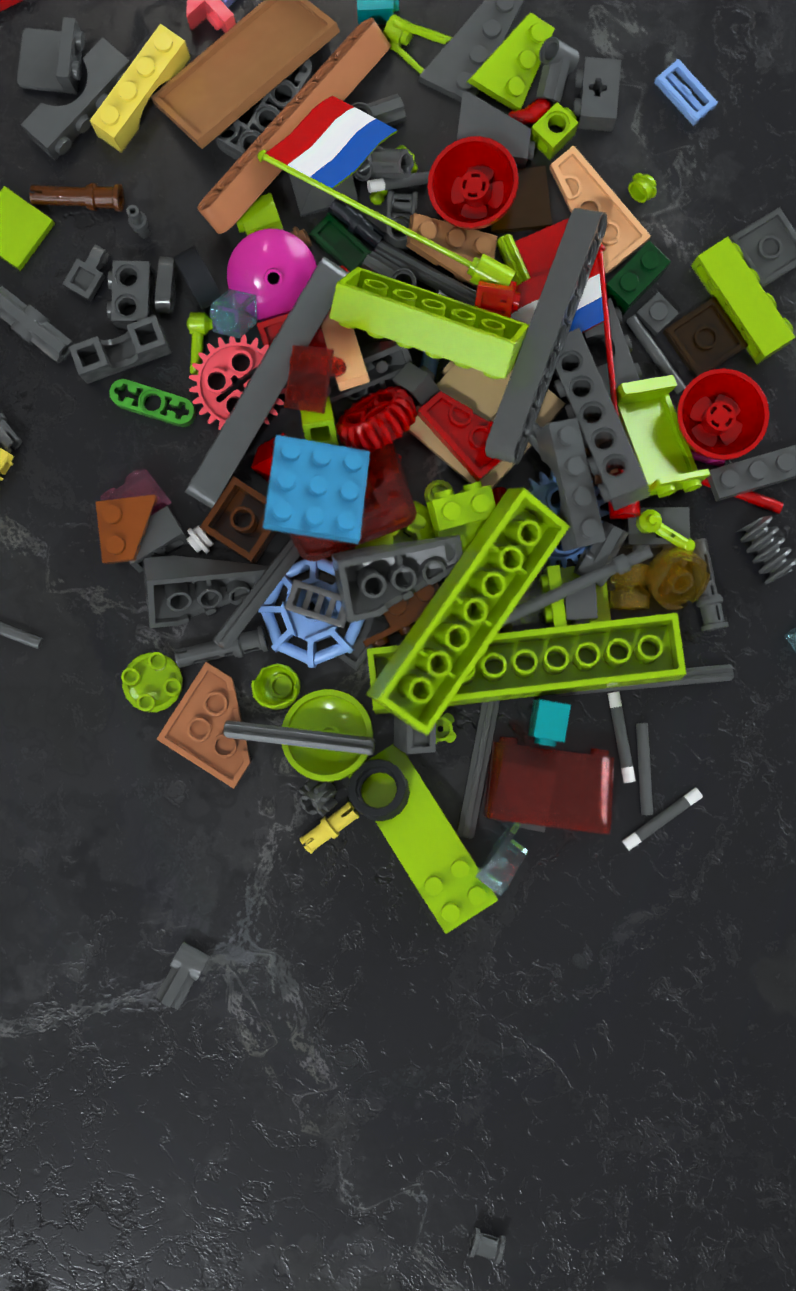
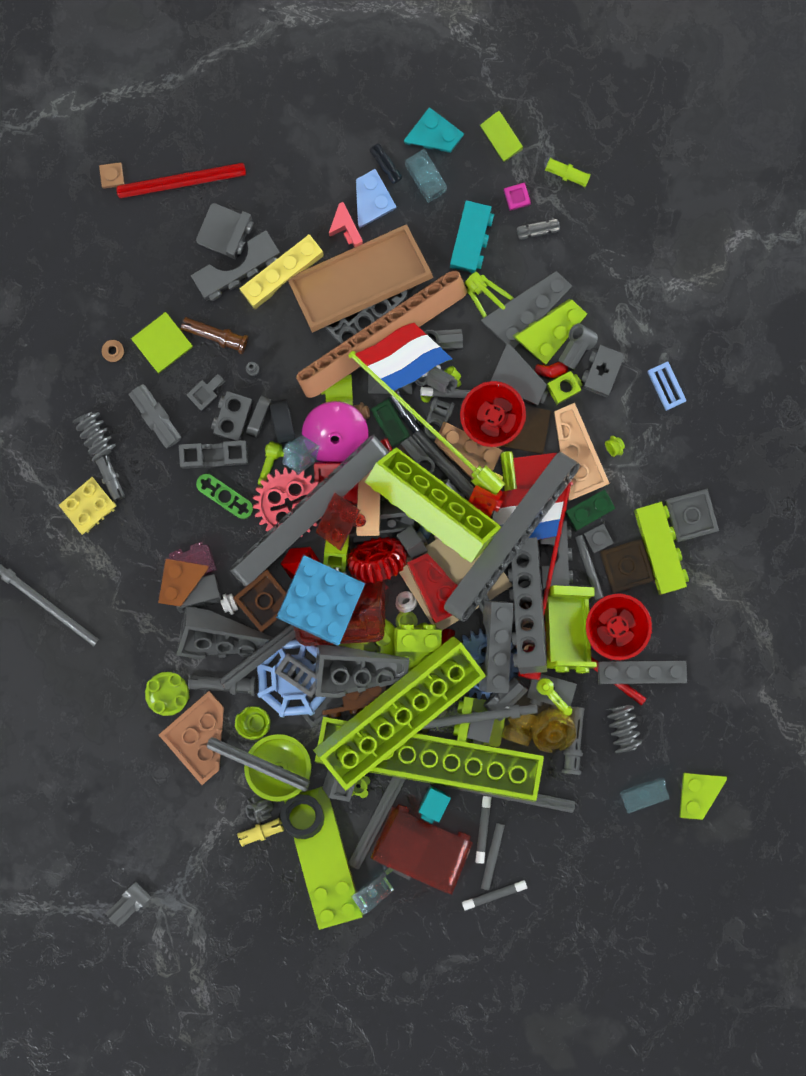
camera: 10 degrees right, 0 degrees up
(430, 468) = (405, 602): none -> white plate

